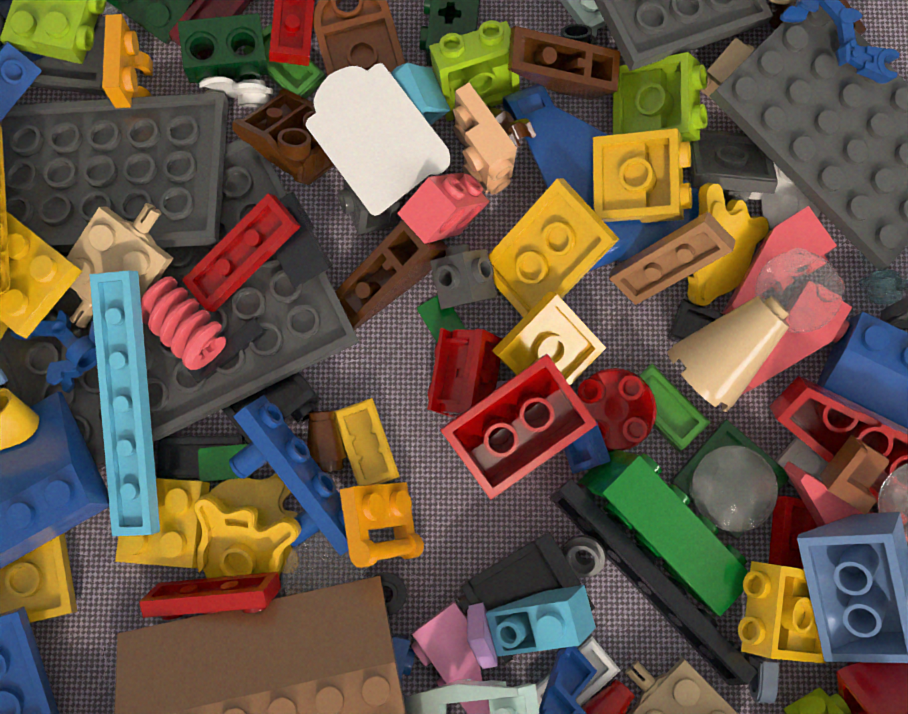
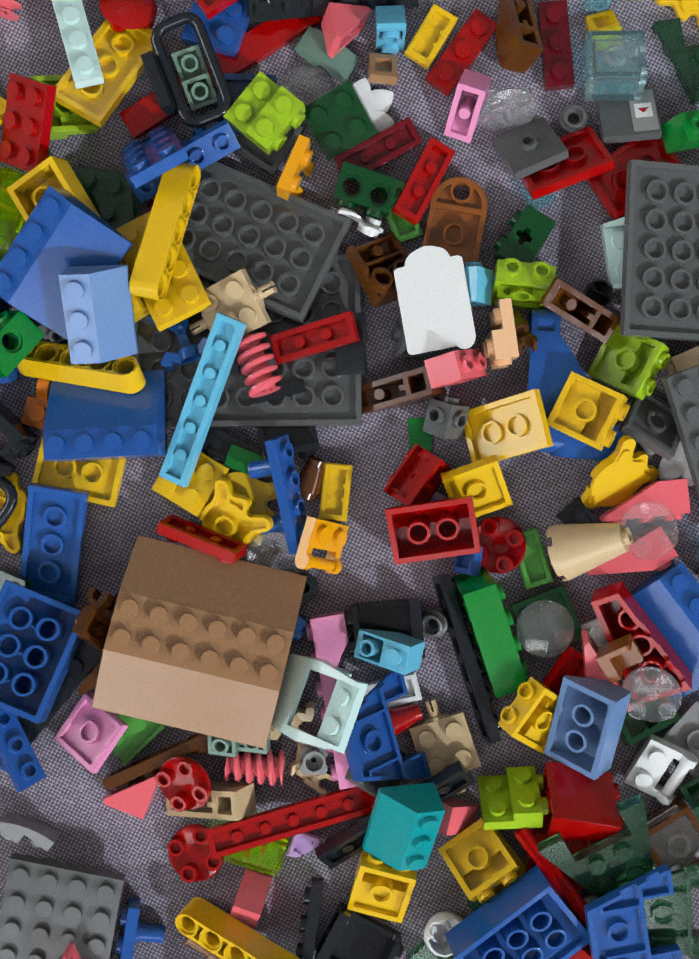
camera: 30 degrees right, 10 degrees up
(480, 637) = (349, 640): lavender tile -> none
(672, 258) = (580, 472): medium nougat plate -> none
(765, 683) = (503, 747): sand blue tile -> none

